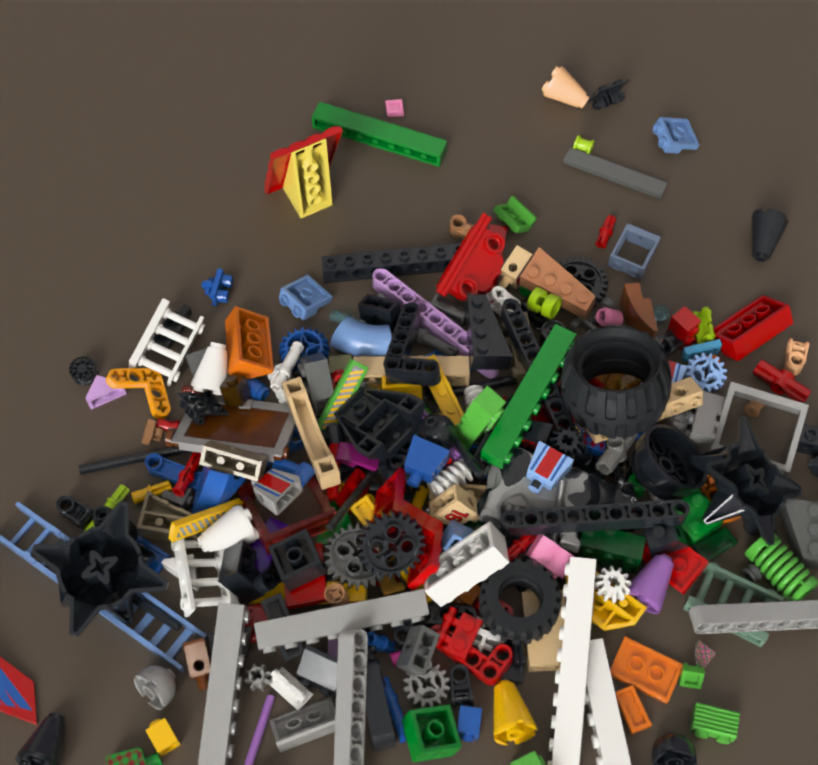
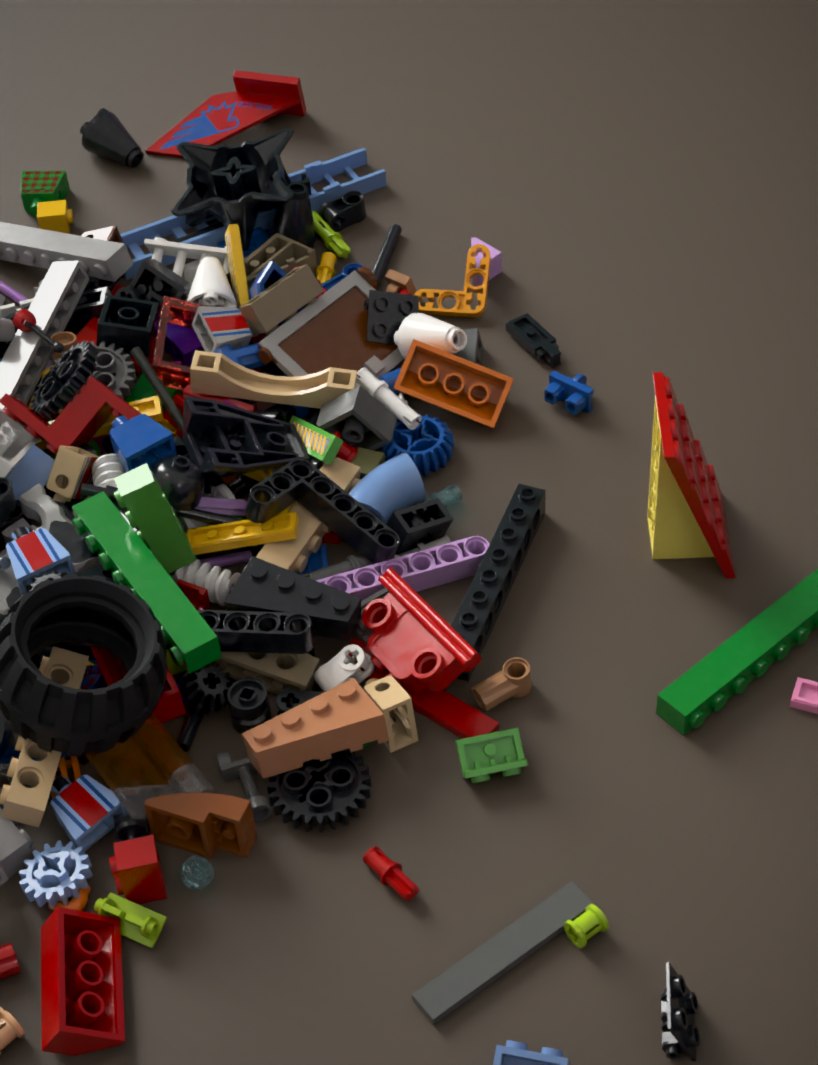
camera: 120 degrees right, 15 degrees down
(78, 370) = (523, 255): black wheel -> none
(155, 327) = (516, 298): white fence -> none
(157, 685) = (102, 214): light grey cylinder -> none
(235, 390) = (391, 350): dark brown brick -> none
(304, 297) = (498, 467): medium blue plate -> none
(338, 619) = (26, 322): none -> hinge
(542, 302) = (289, 693): lime wheel -> none
(565, 89) = (724, 946): light nougat cone -> none
(609, 316) = (231, 783): bright pink brick -> none
(641, 238) = (342, 913): sand blue window -> none
(708, 347) = (96, 884): dark azure tile -> none

